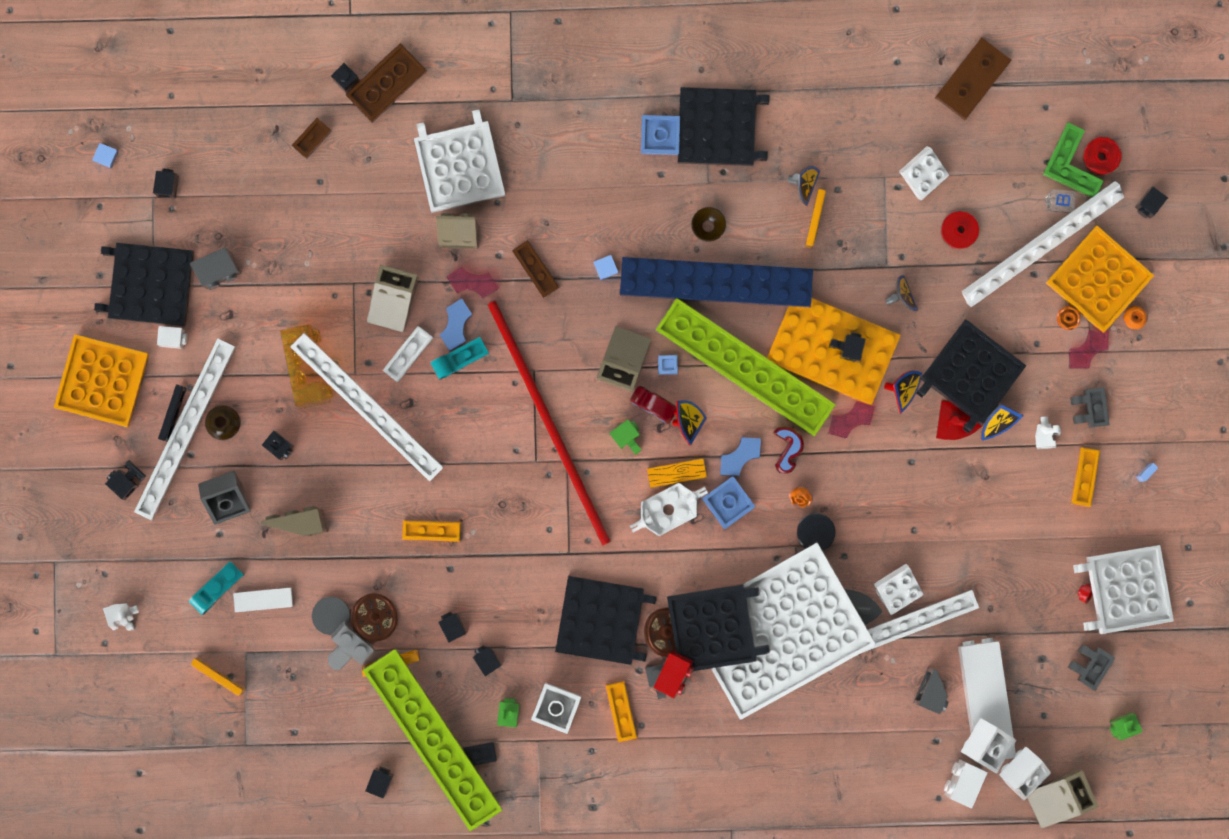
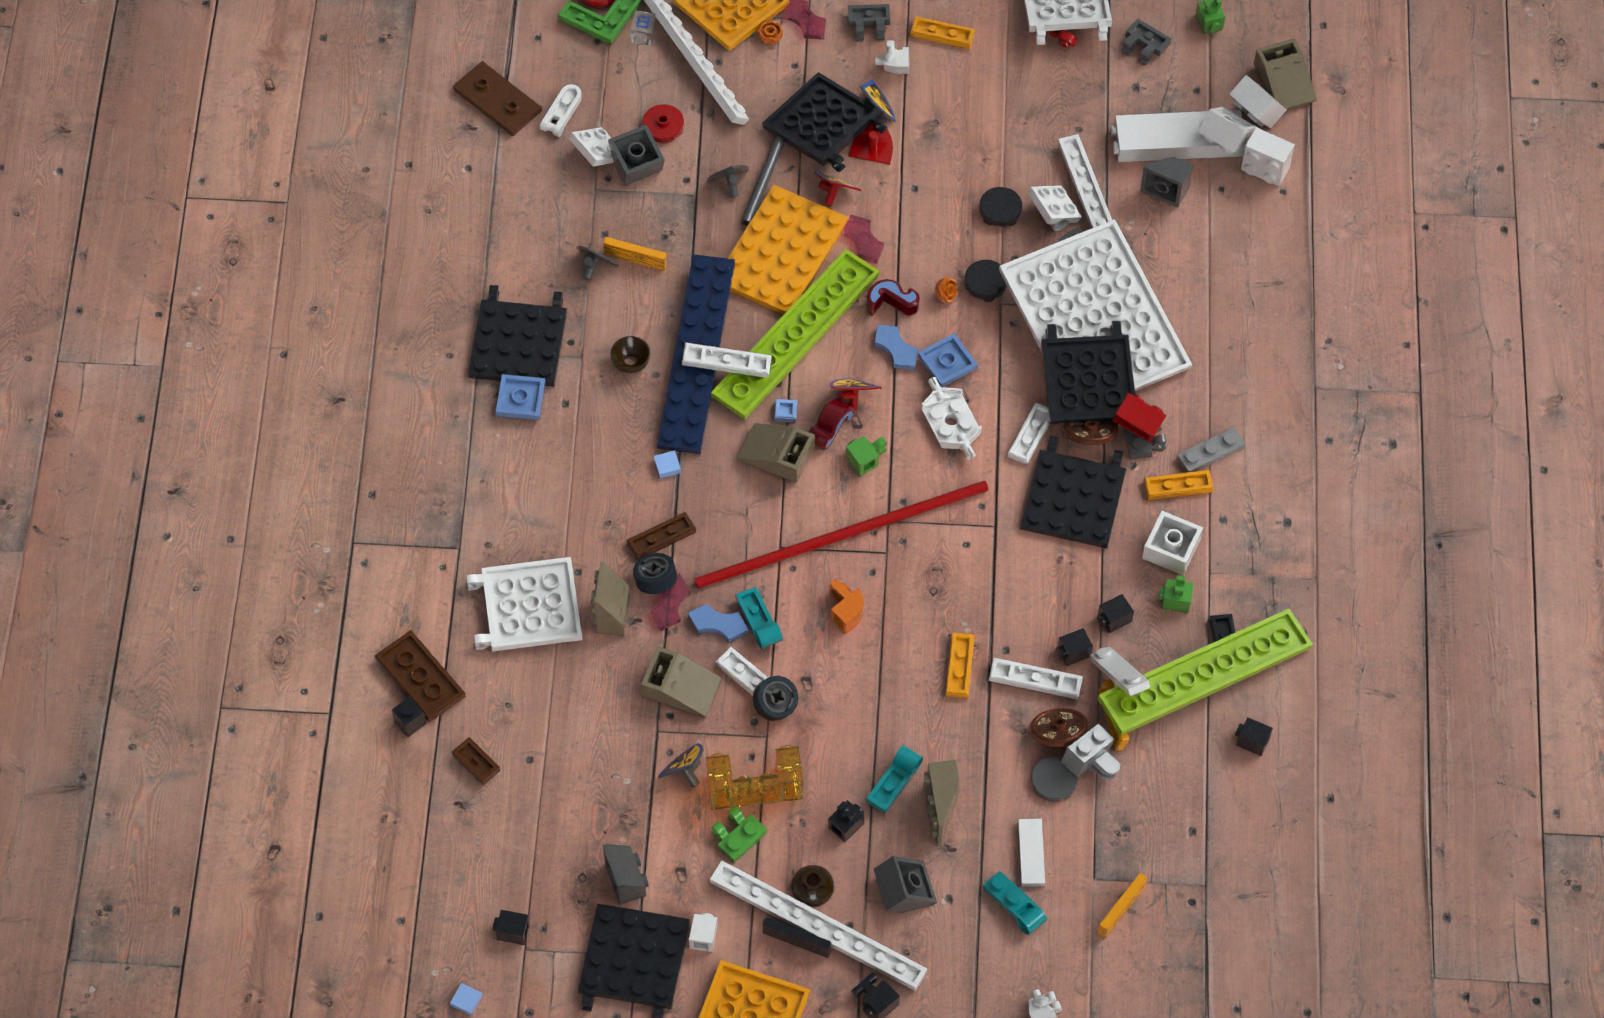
camera: 85 degrees left, 25 degrees down
(259, 361) = (742, 838): none -> bright green plate
(318, 482) = (895, 779): none -> teal plate
(319, 308) = (687, 763): none -> shield
(366, 406) = (808, 710): white plate -> none
(391, 373) = (764, 701): none -> wheel
(421, 595) = (1035, 678): none -> white plate
(422, 666) = (1119, 671): none -> white plate
(477, 436) = (850, 606): none -> orange brick
(486, 273) = (655, 573): none -> black wheel
(657, 739) = (1210, 451): none -> light grey plate
(661, 579) = (1030, 434): none -> white tile
(676, 473) = (910, 410): light orange tile -> none
(704, 308) = (726, 360): none -> white plate
(851, 348) = (784, 225): black brick -> none
(895, 541) = (1000, 206): none -> black tile
(905, 325) = (763, 180): none -> dark grey piece
(916, 207) = (636, 155): none -> dark grey slope
(964, 138) = (562, 109): none -> white plate

